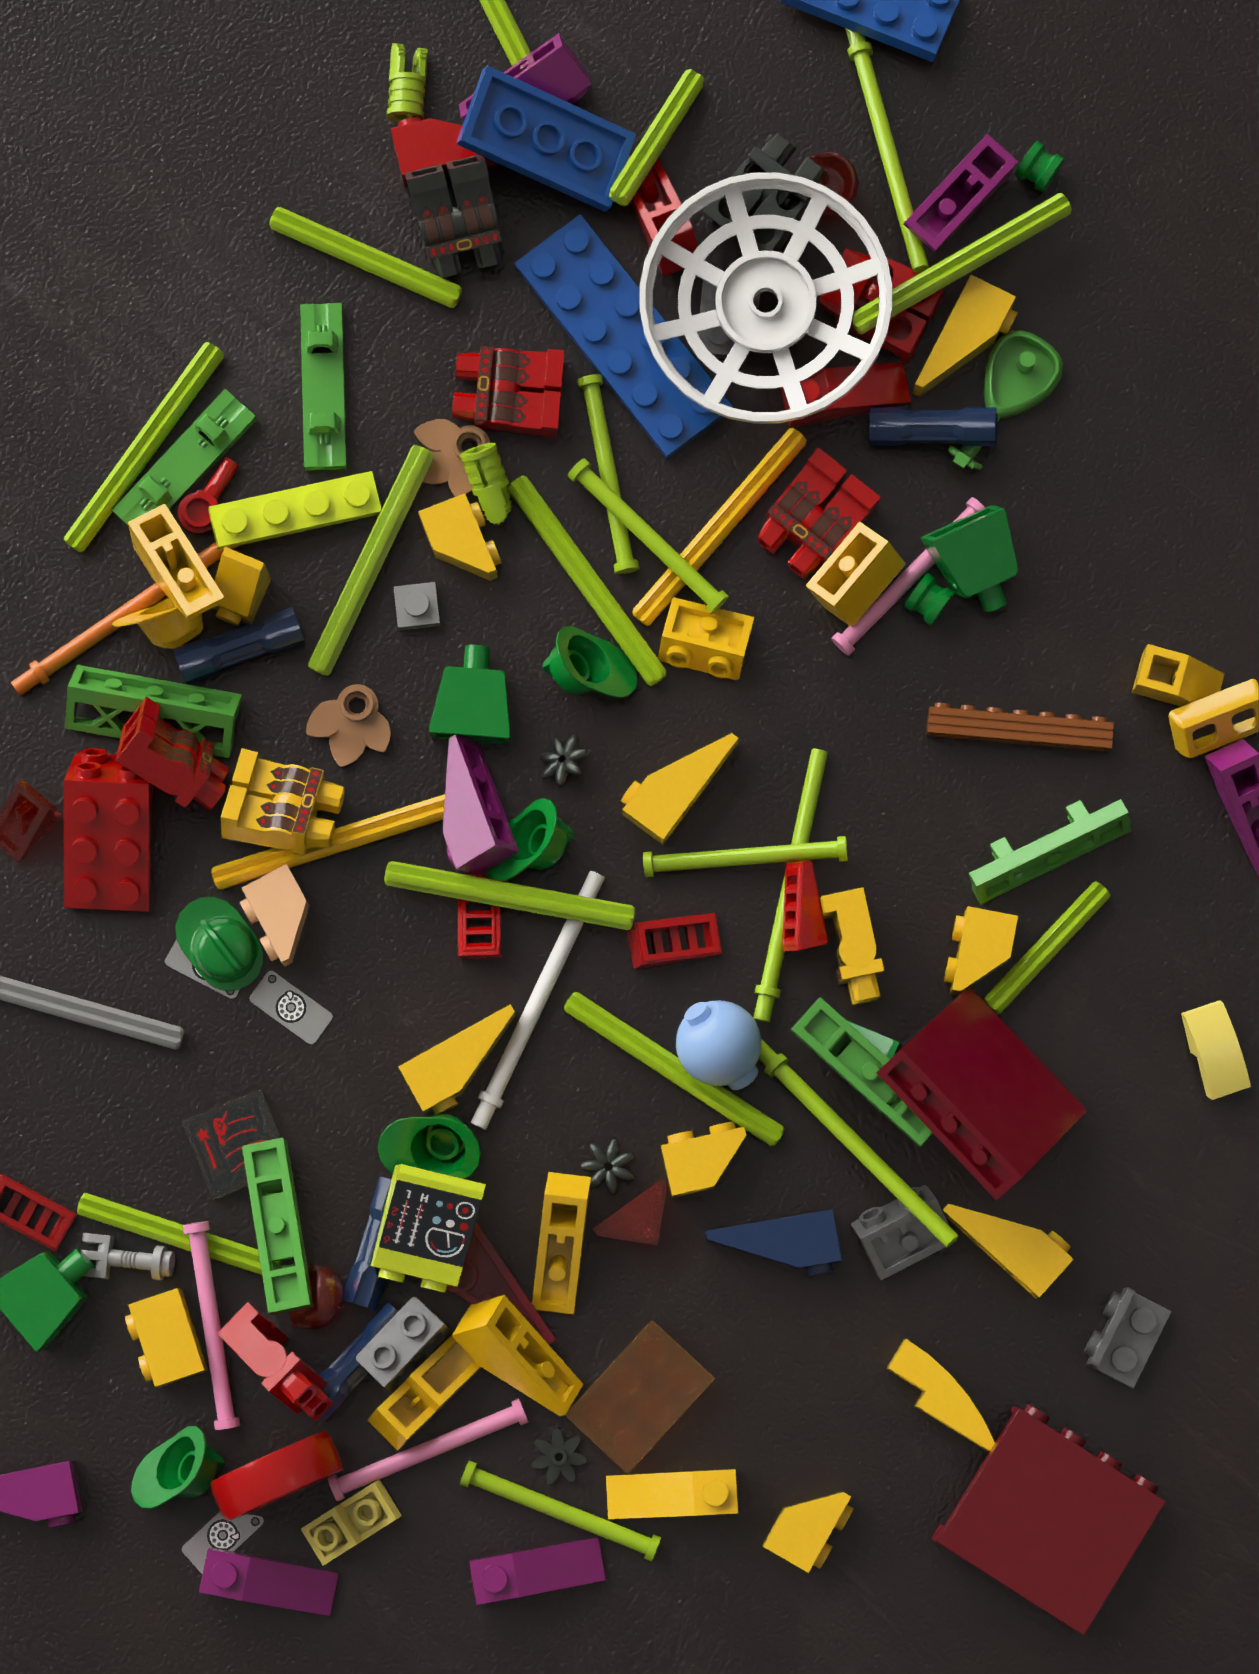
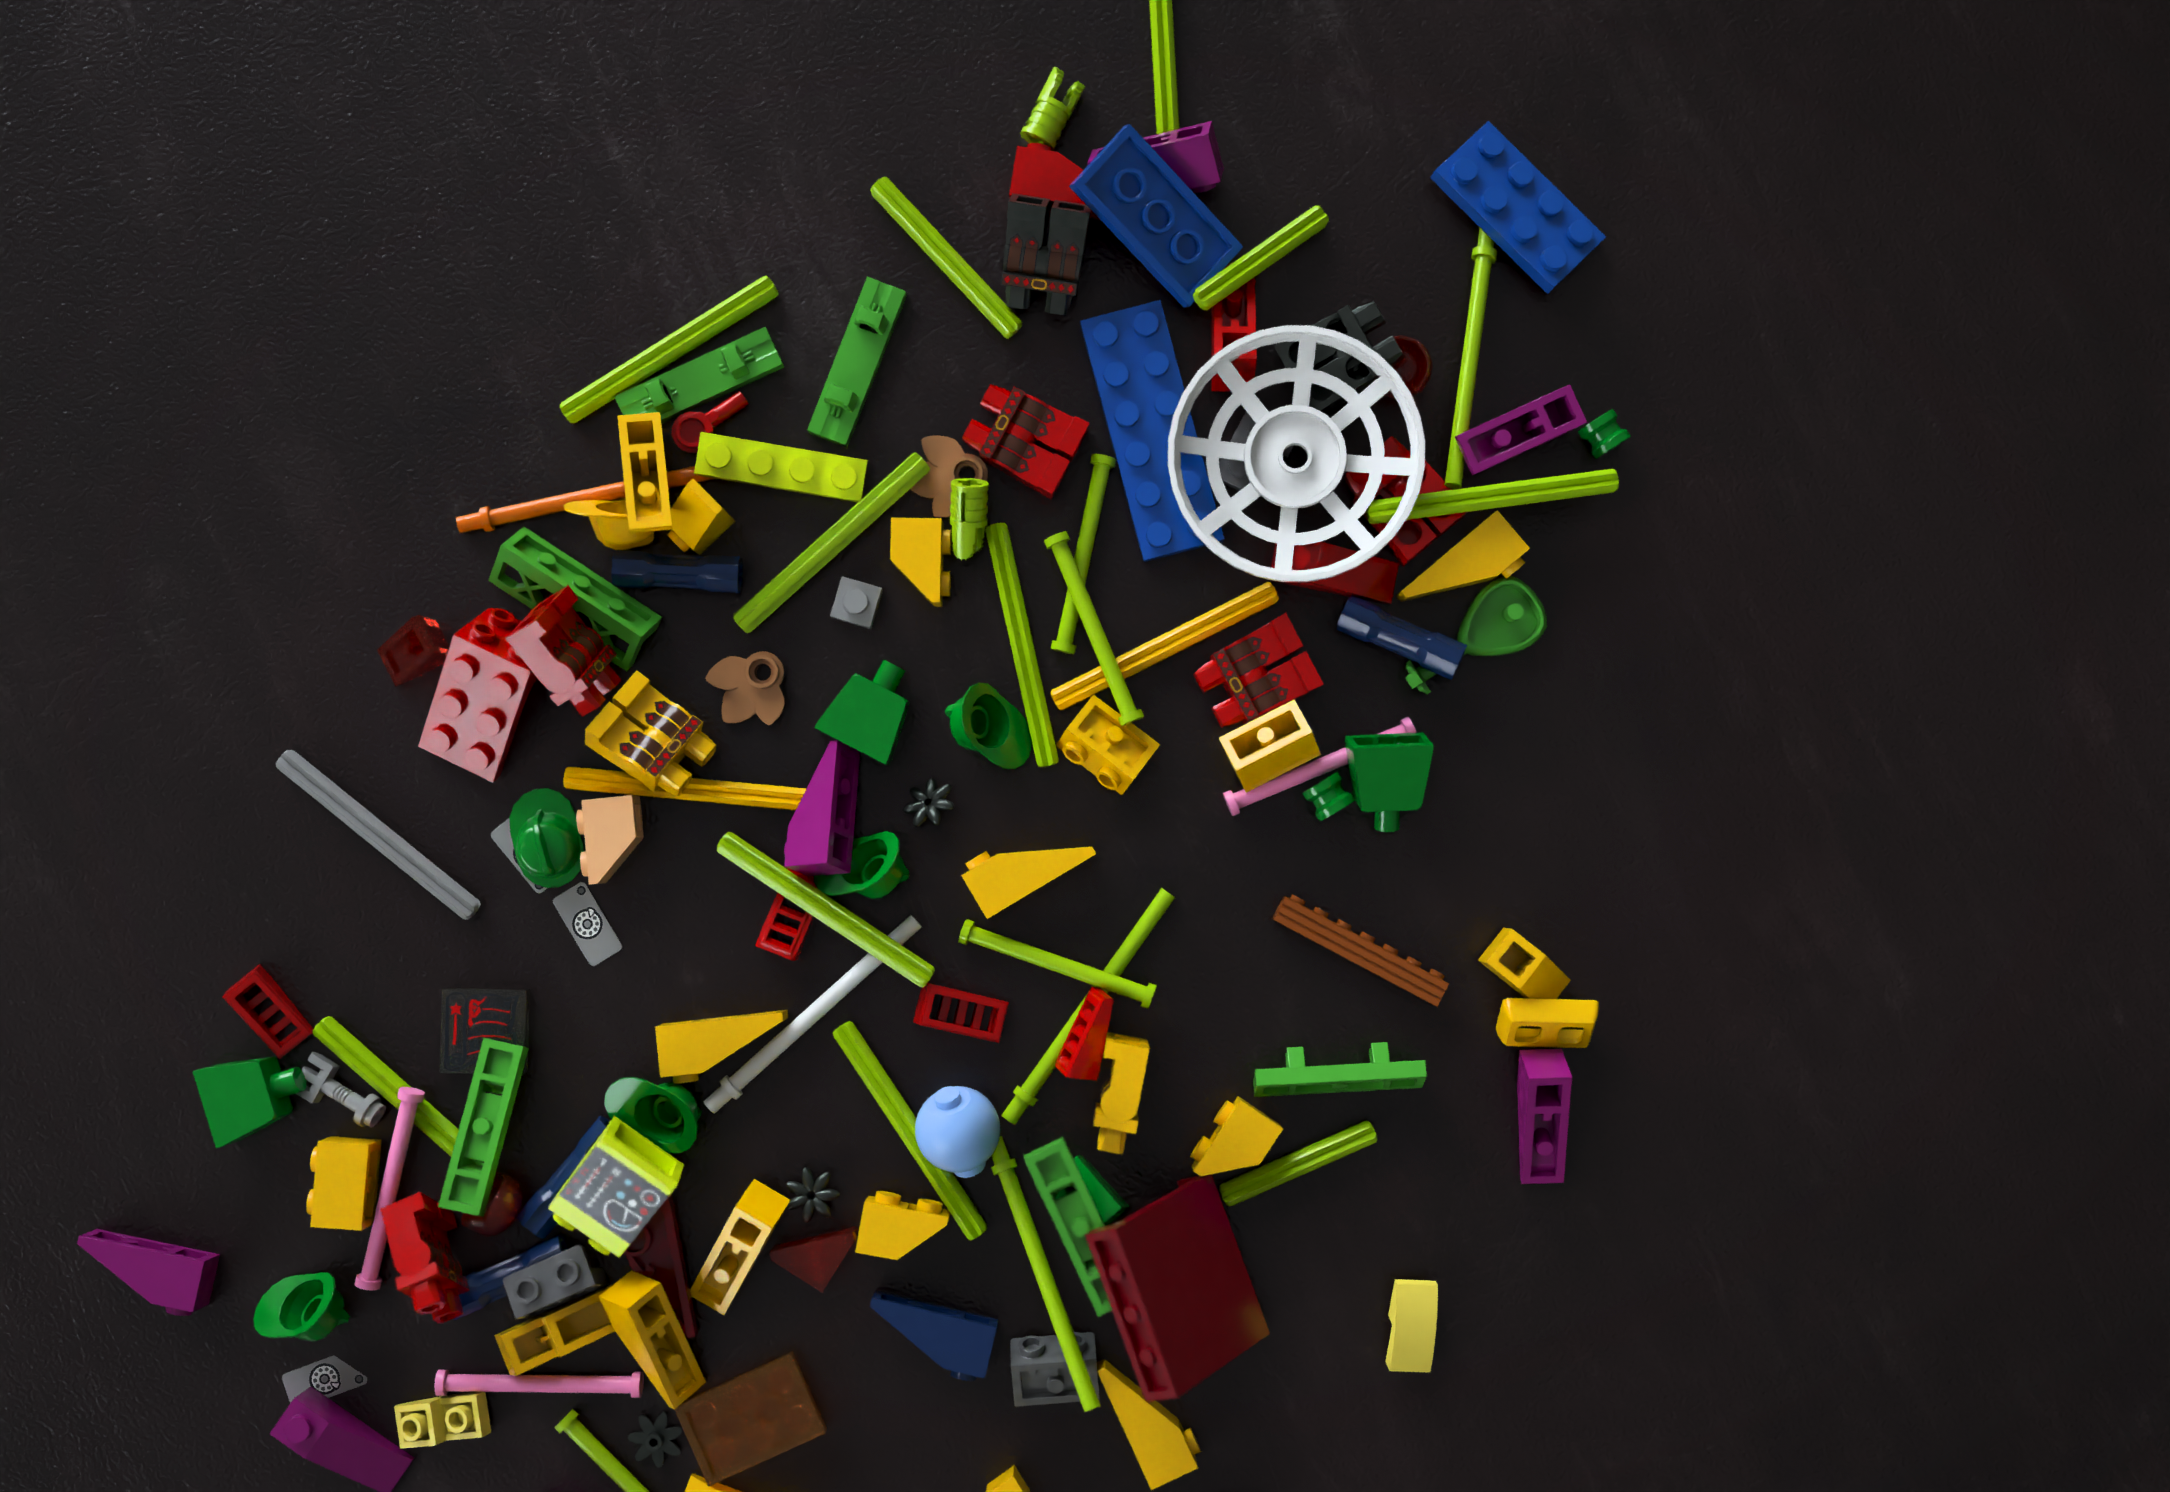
camera: 20 degrees right, 5 degrees up
(276, 1475) = (382, 1361): red piece -> none

